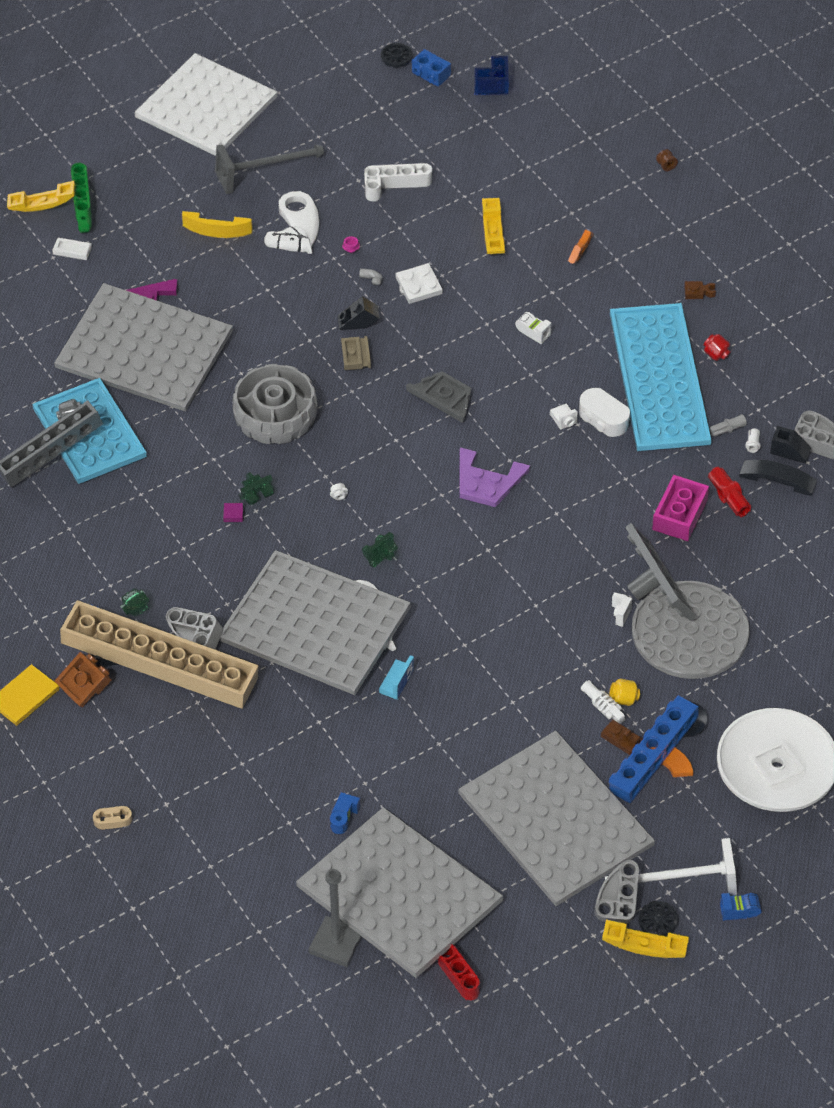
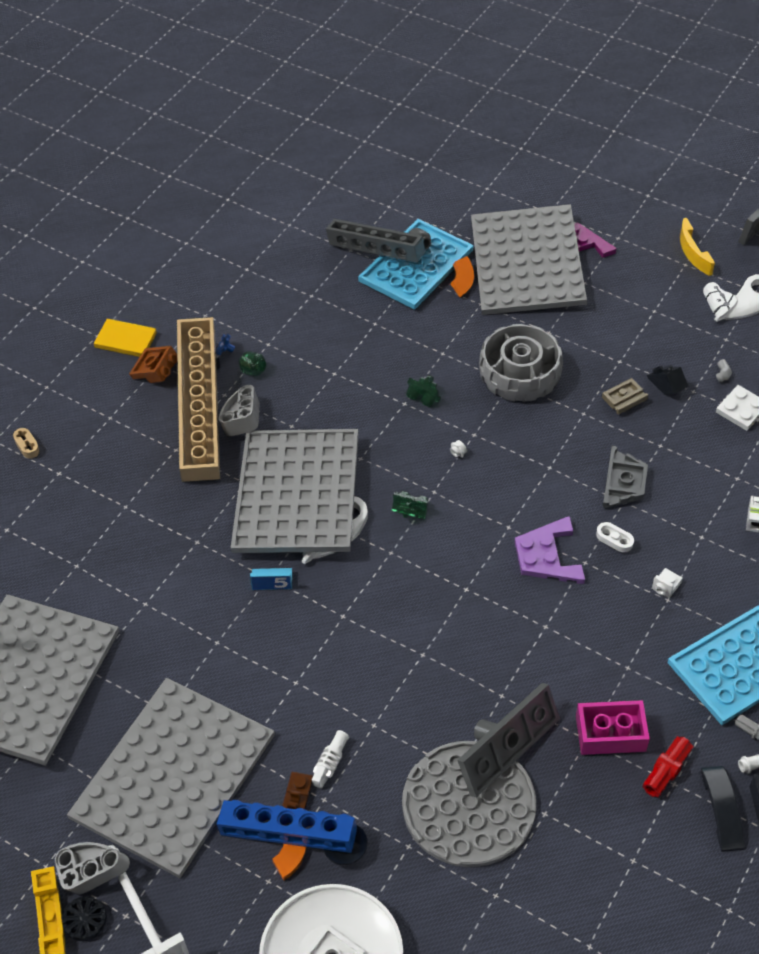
camera: 65 degrees right, 0 degrees up
(41, 201) = (625, 132): yellow slope -> none
(72, 248) = (600, 177): white tile -> none
(81, 197) = (654, 157): green piece -> none
(133, 402) = (464, 276): none -> orange tile
(233, 512) = (390, 388): magenta tile -> none
(342, 811) = (97, 598): blue leg -> none
(351, 244) = (748, 342): dark pink plate -> none
(498, 428) = (615, 537): none -> white plate
(604, 412) = (692, 612): white brick -> none
(622, 608) = (454, 729): white bracket -> none
(624, 692) = (349, 771): yellow head -> none

